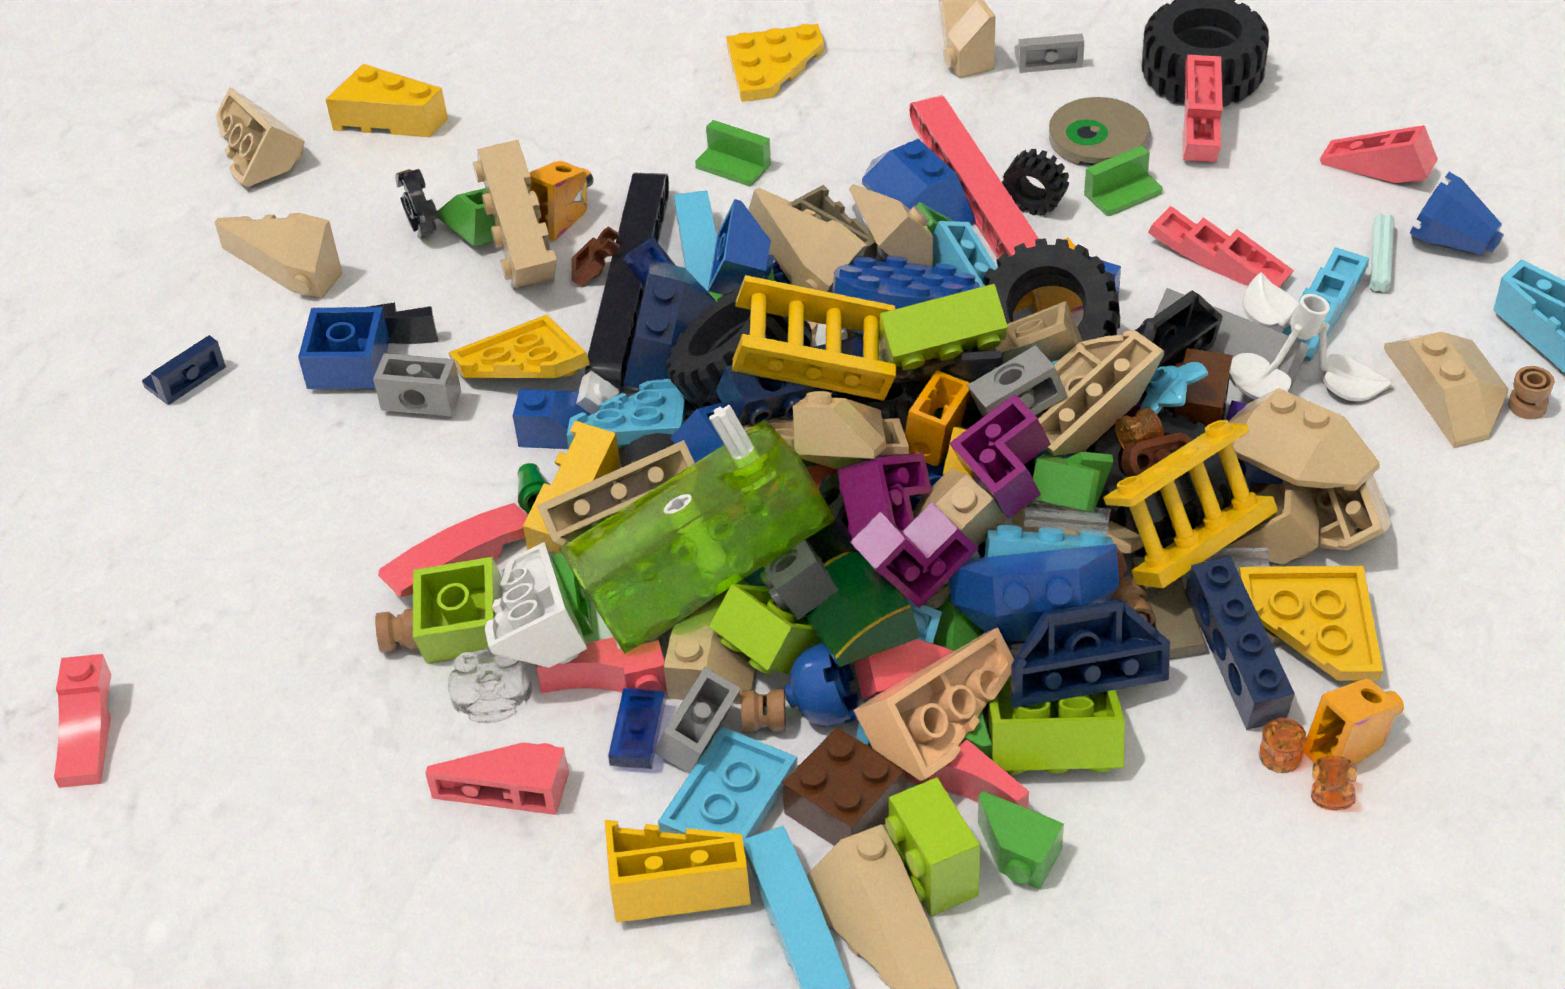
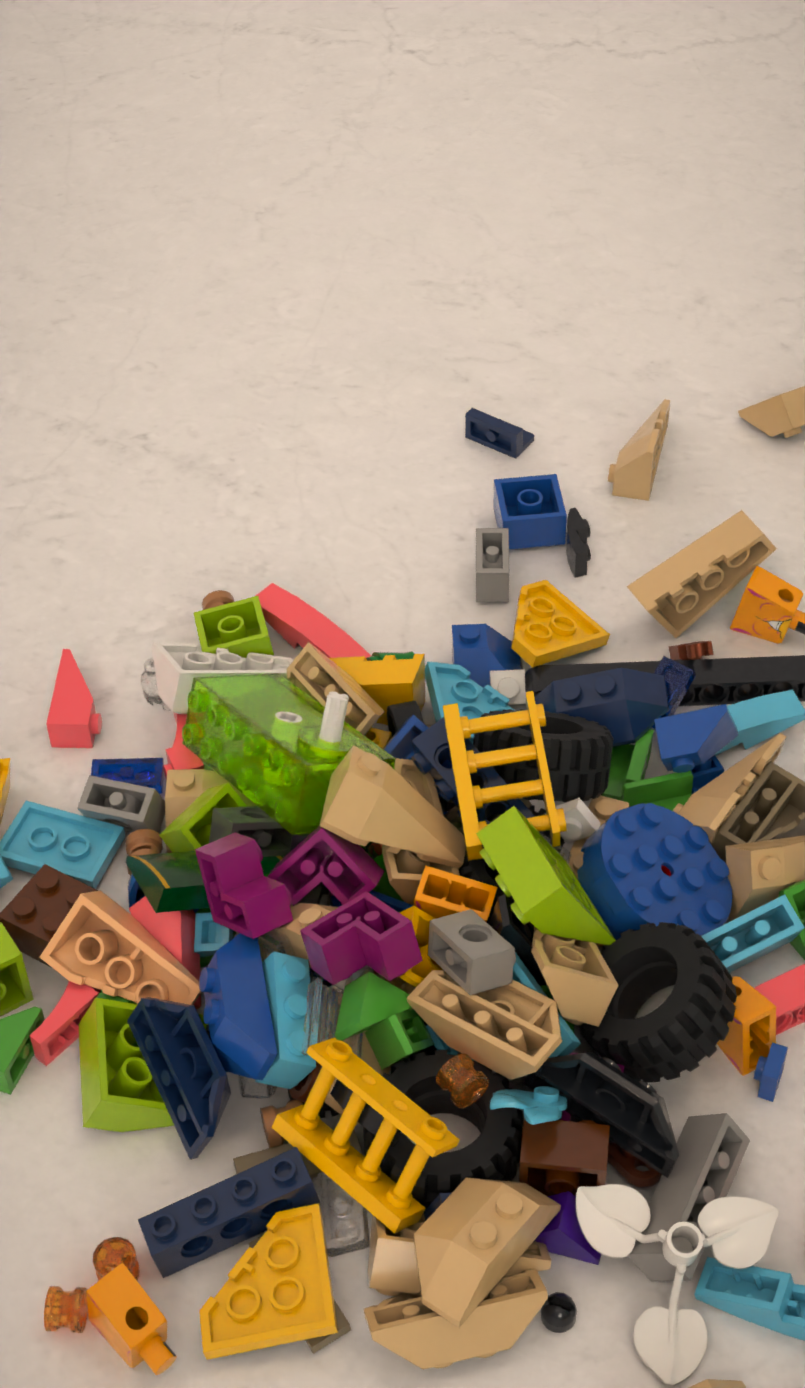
camera: 80 degrees right, 0 degrees up
(83, 720) = (122, 471): coral slope -> none
(418, 210) = (723, 505): black plate -> none
(1151, 452) = (433, 1095): copper plate -> none

